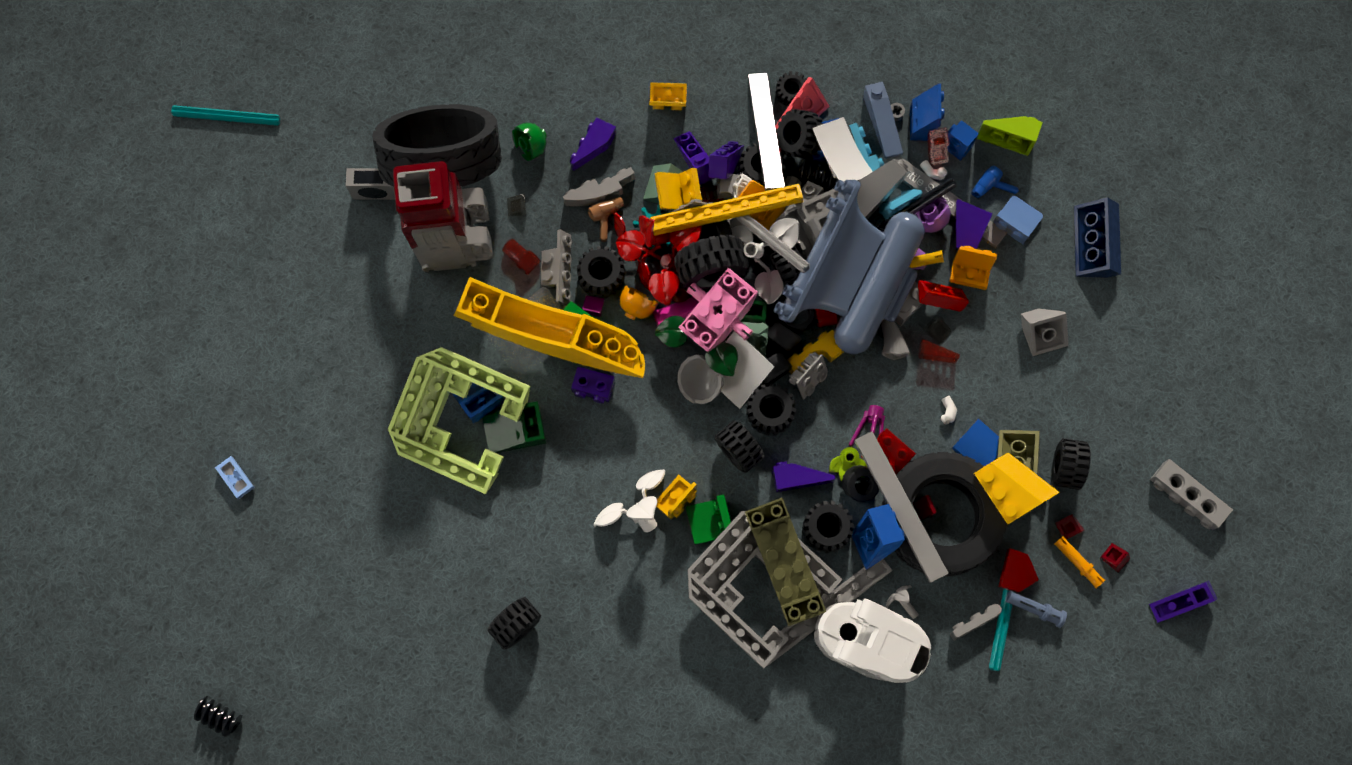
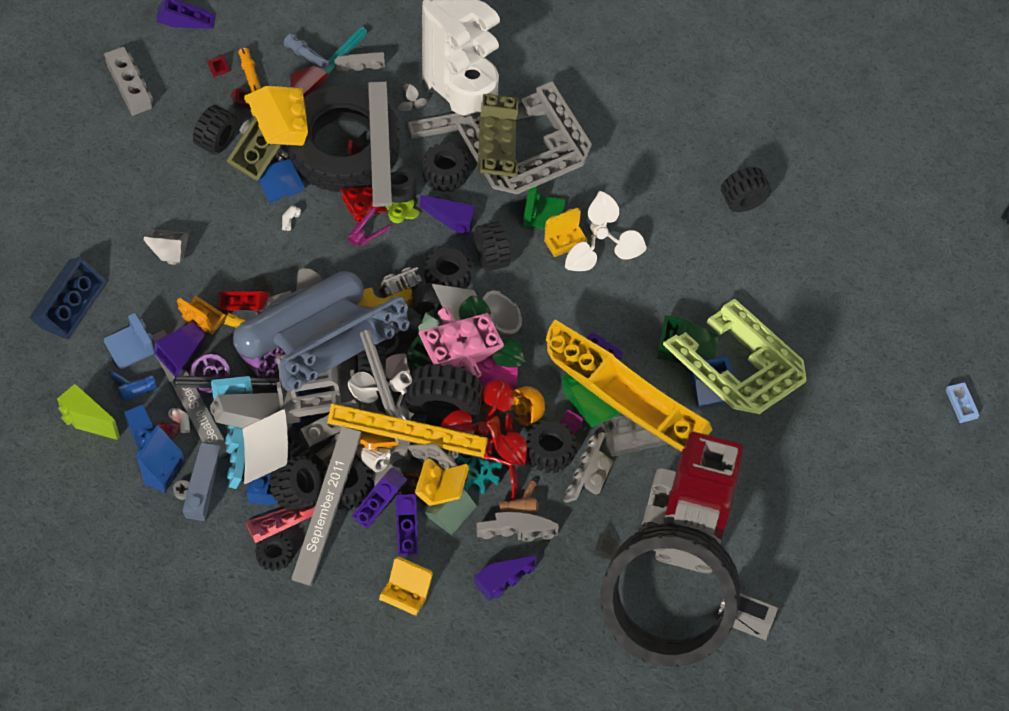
camera: 160 degrees left, 15 degrees down
(524, 259) = (620, 491): clear red piece -> none
(529, 137) = (566, 600): green cylinder -> none
(877, 535) = (409, 132): blue slope -> none
(934, 352) = (274, 262): clear red slope -> none

